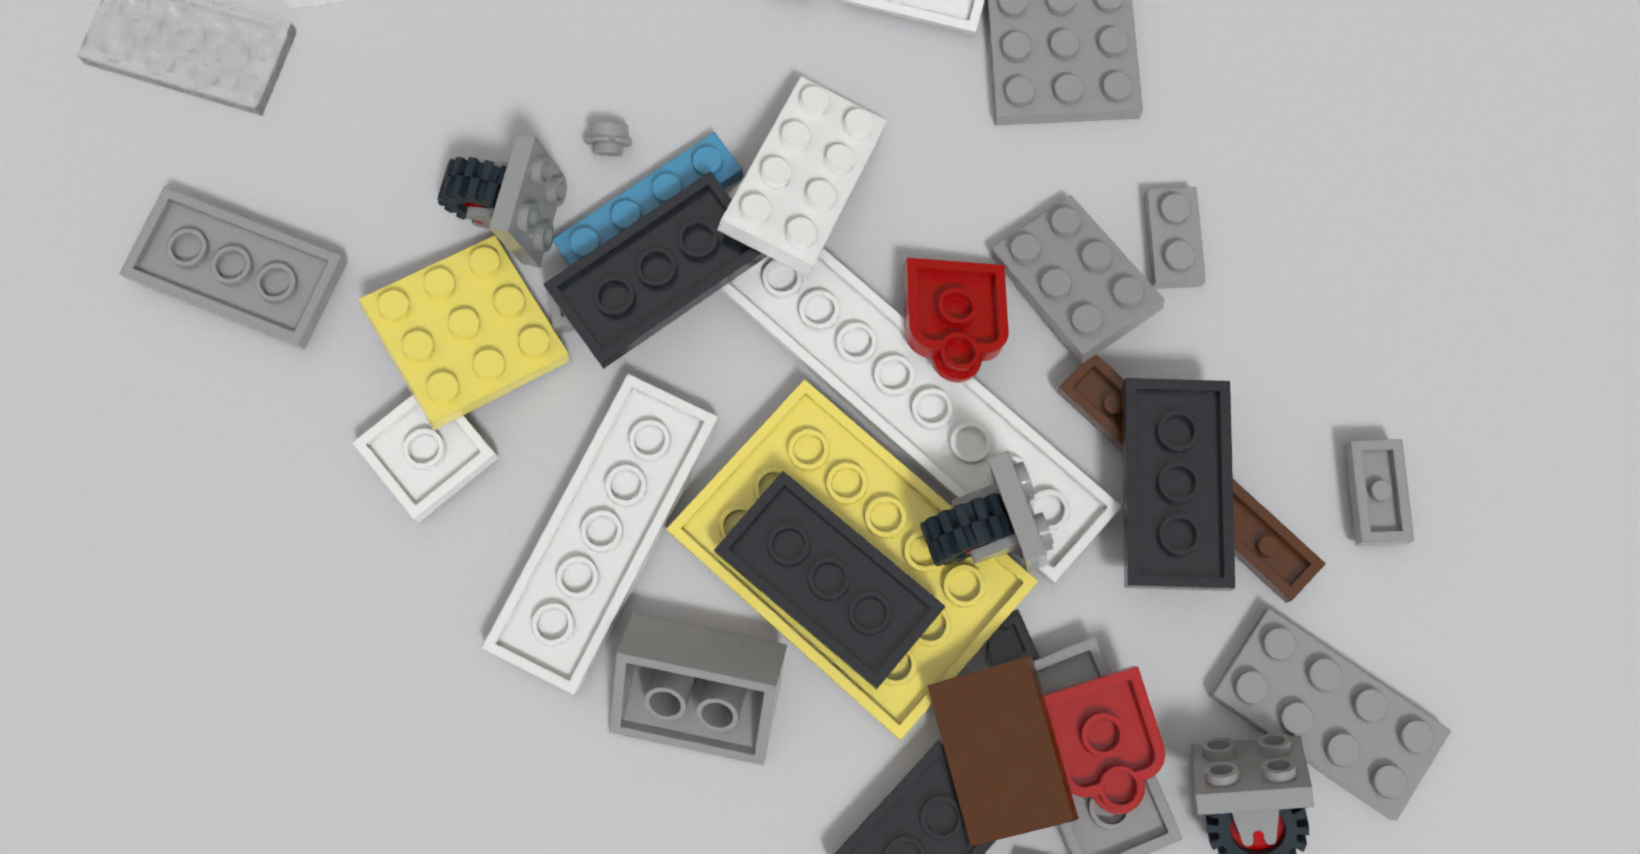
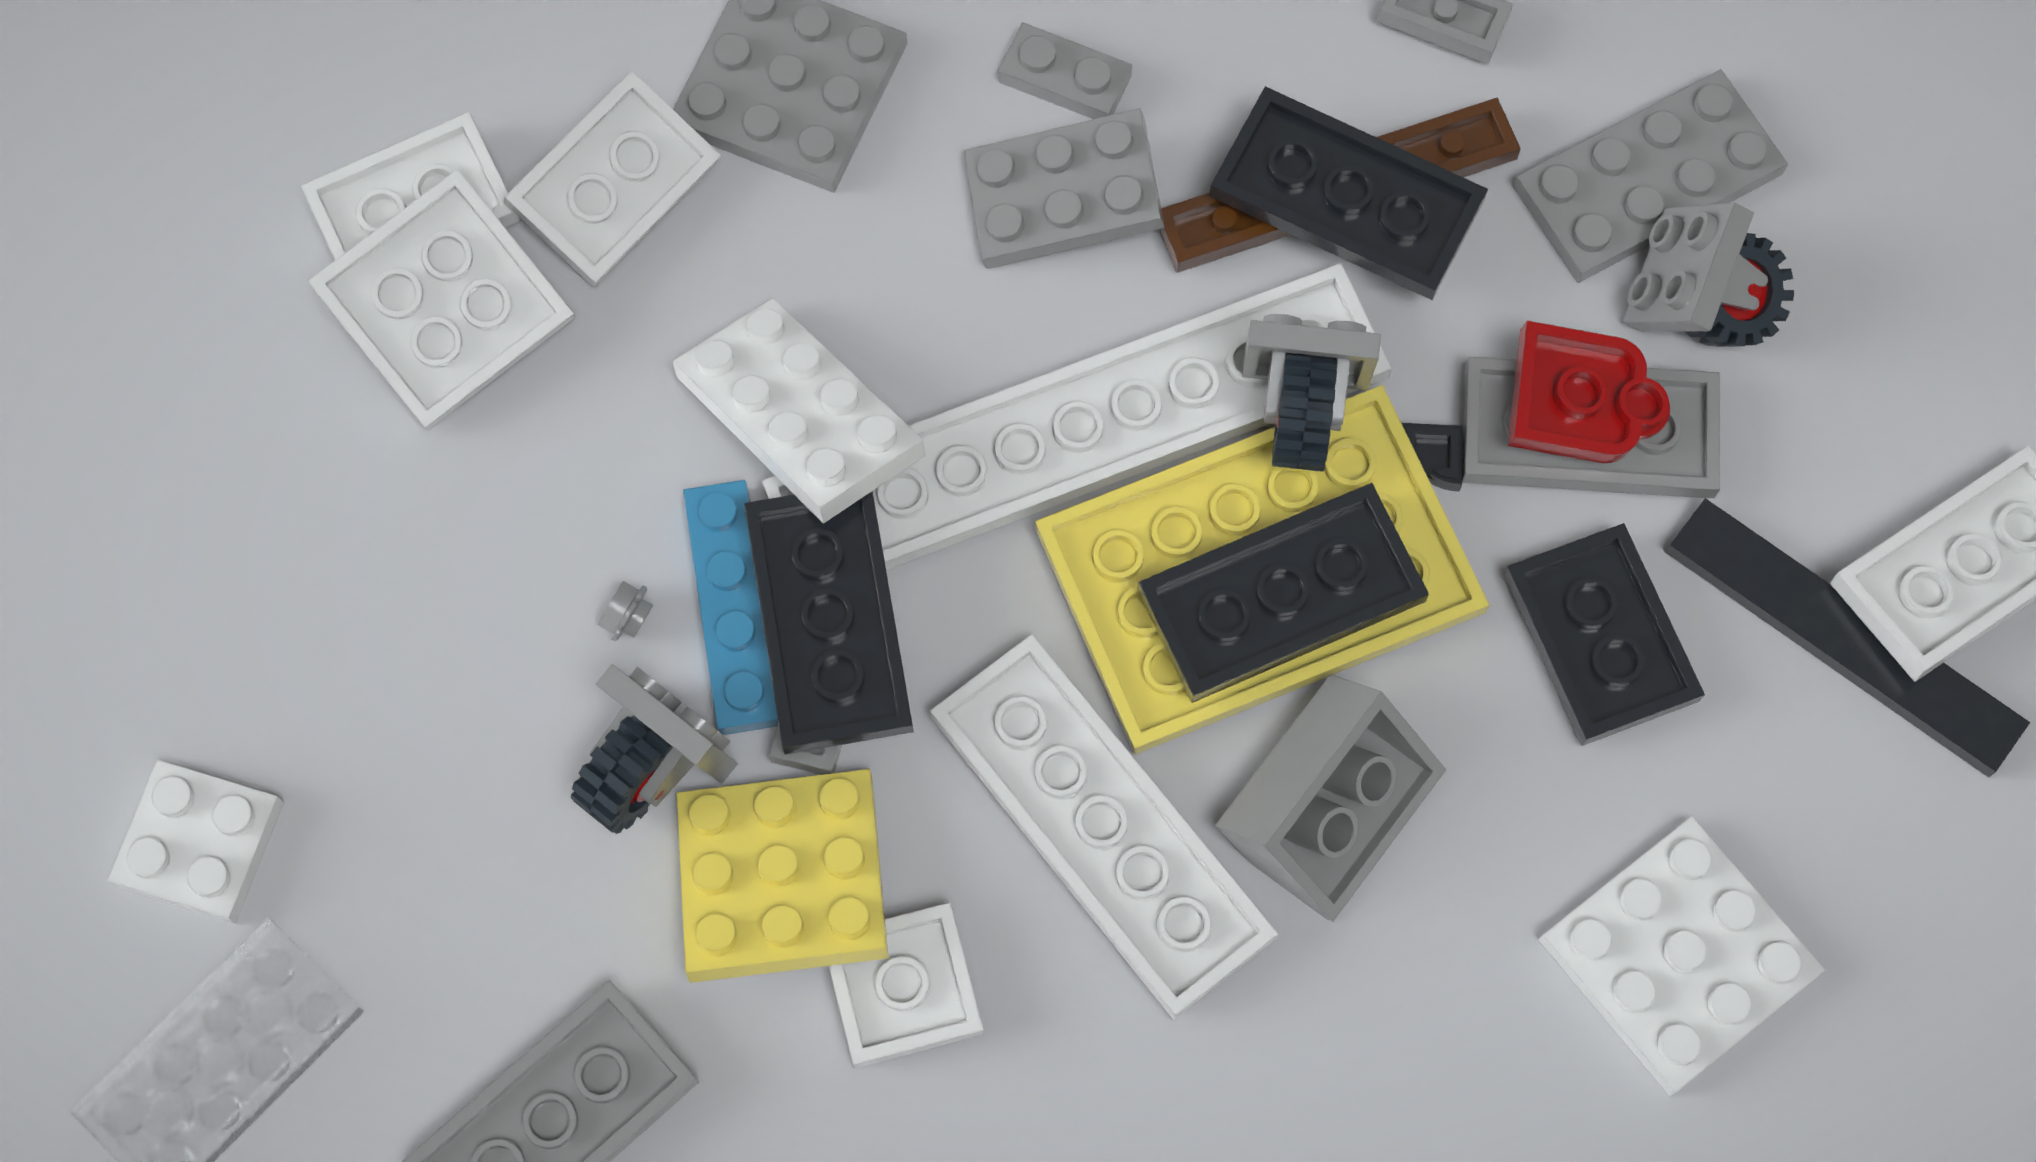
camera: 65 degrees left, 5 degrees down
(955, 314) = (1041, 329): red plate -> none
(1002, 752) = (1554, 498): reddish brown tile -> none

